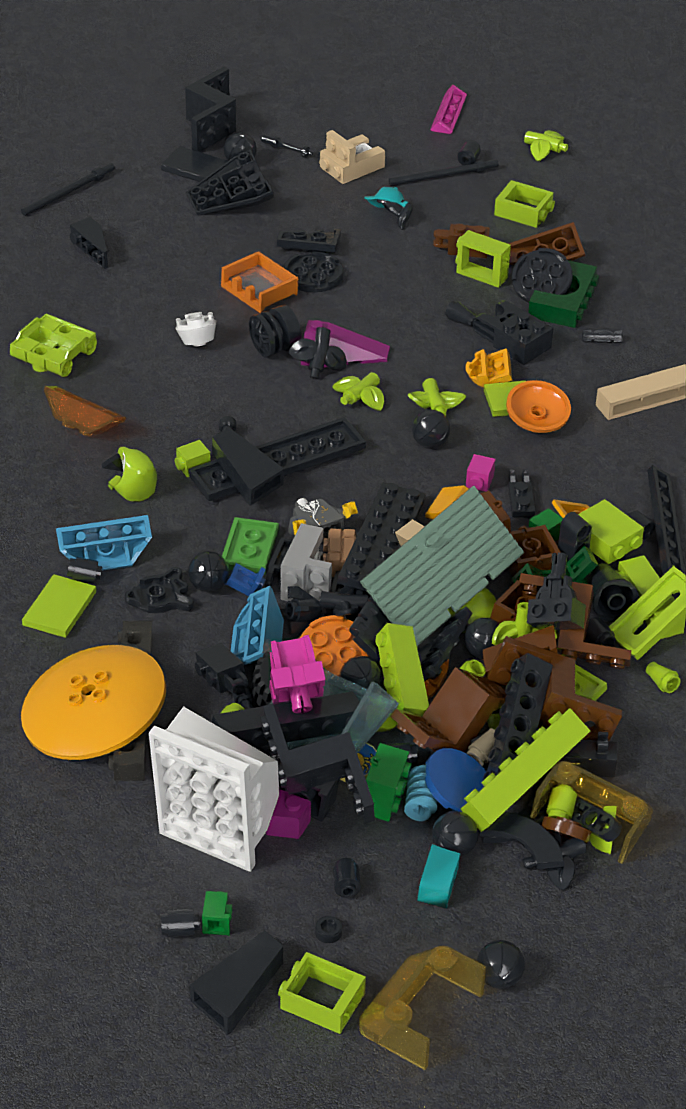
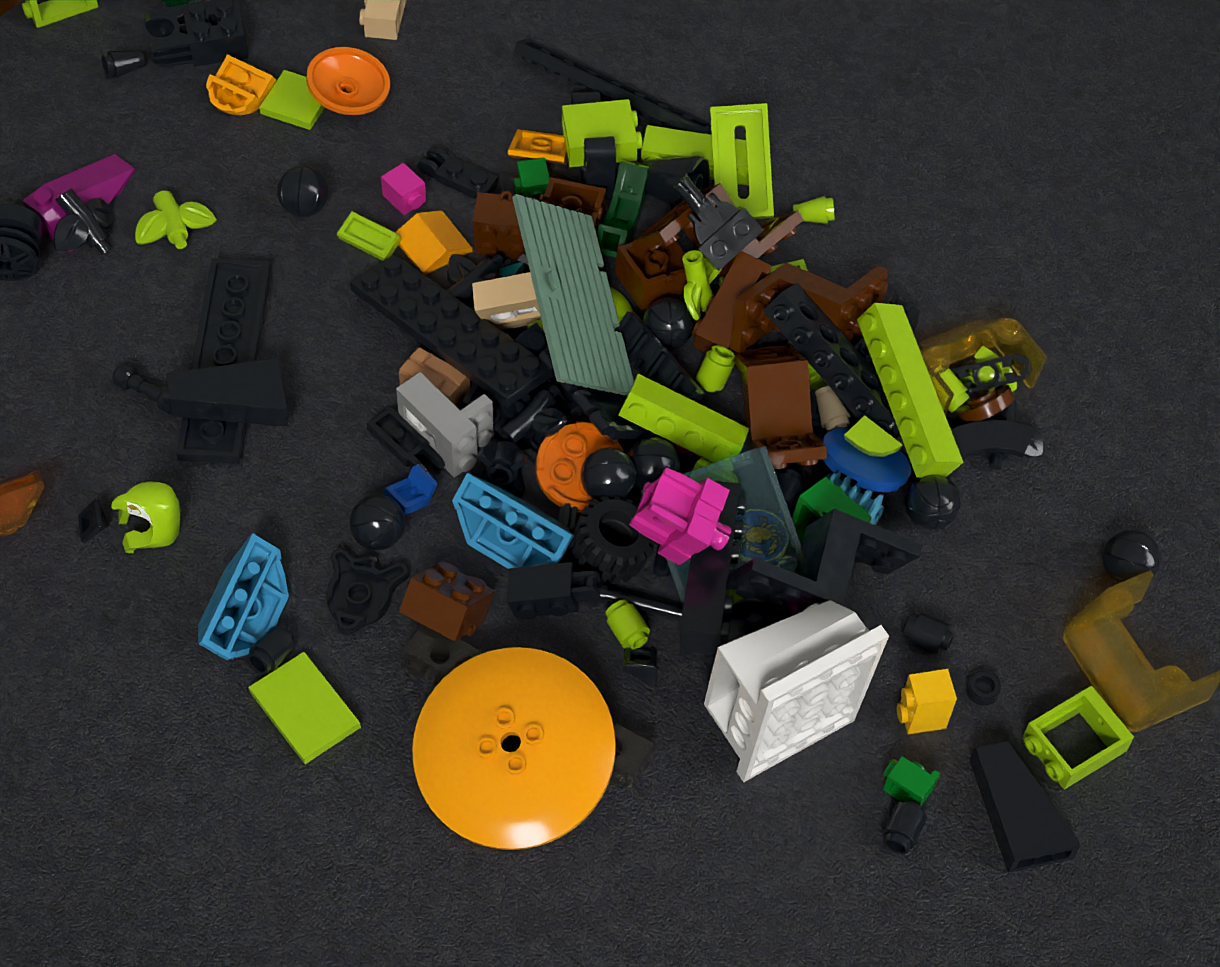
camera: 60 degrees left, 15 degrees up
(172, 624) = (447, 601): none -> reddish brown brick
(191, 456) = (158, 440): lime brick -> none
(250, 544) = (346, 461): bright green tile -> none
(281, 889) = (927, 701): none -> yellow brick
(320, 514) = (366, 372): dark grey torso -> none
(330, 650) = (608, 473): none -> black piece
(429, 476) = (368, 236): none -> lime tile
(434, 399) = (247, 162): lime plant -> none
(438, 876) = (977, 549): teal piece -> none
(470, 770) = (872, 439): none -> lime brick

